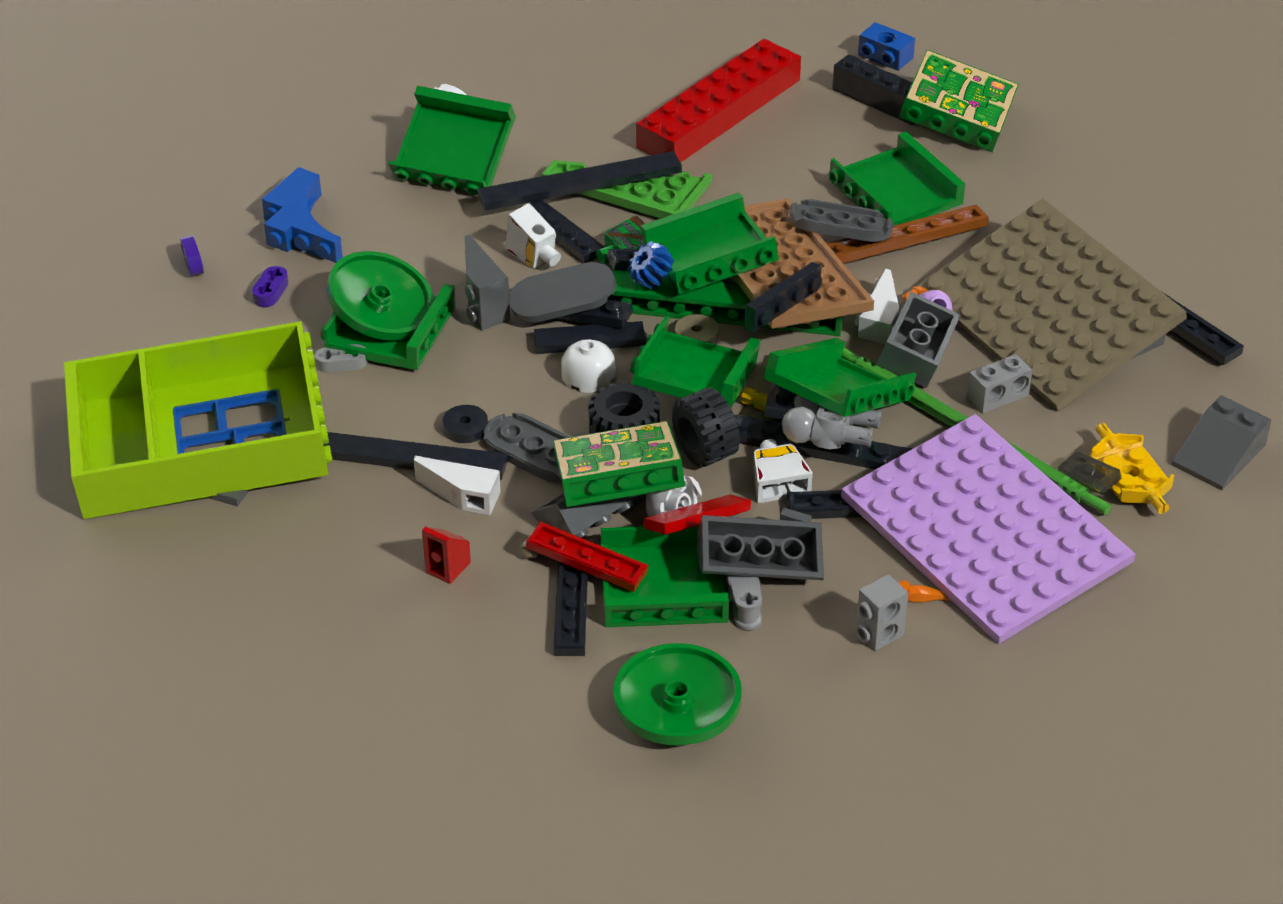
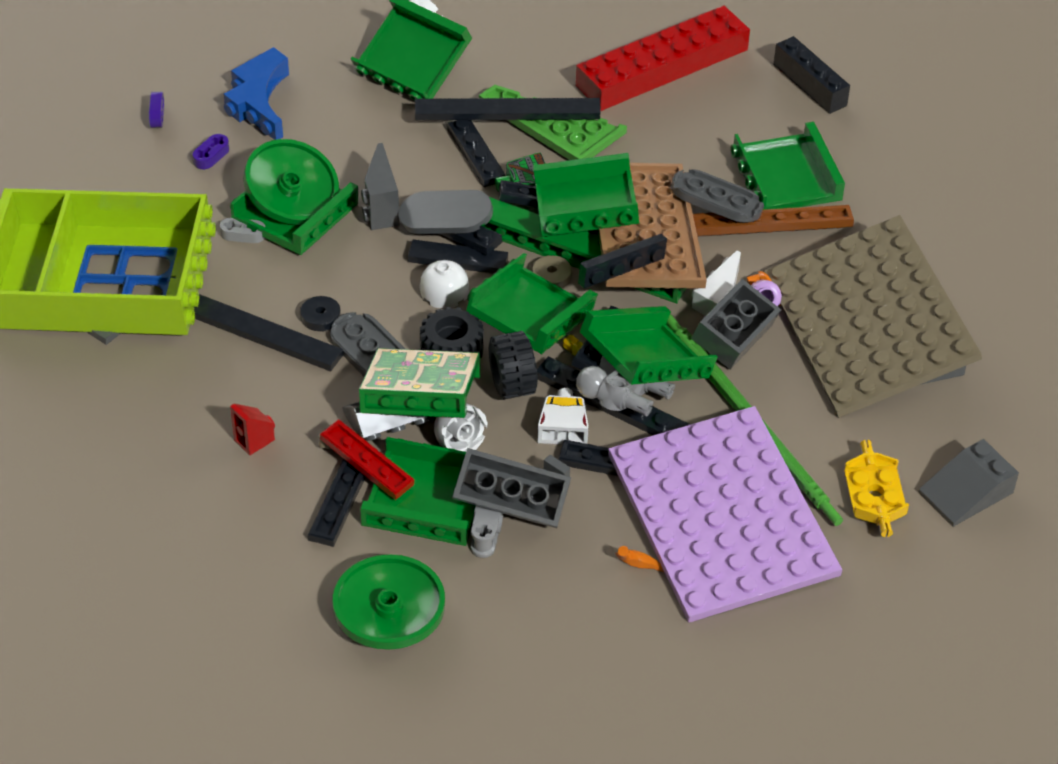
camera: 15 degrees right, 5 degrees up
(460, 484) = (294, 370): white slope -> none
(531, 238) = (442, 154): white torso -> none
(650, 265) = (526, 204): blue gear -> none
(690, 515) = (482, 442): red tile -> none
(881, 612) = (590, 571): light grey brick -> none
(886, 46) = (837, 33): blue brick -> none
(959, 100) = (875, 100): panel -> none
(999, 383) = (793, 381): light grey brick -> none
(1090, 472) = (835, 483): clear smoke plate -> none
(1207, 337) = (999, 371): black plate -> none

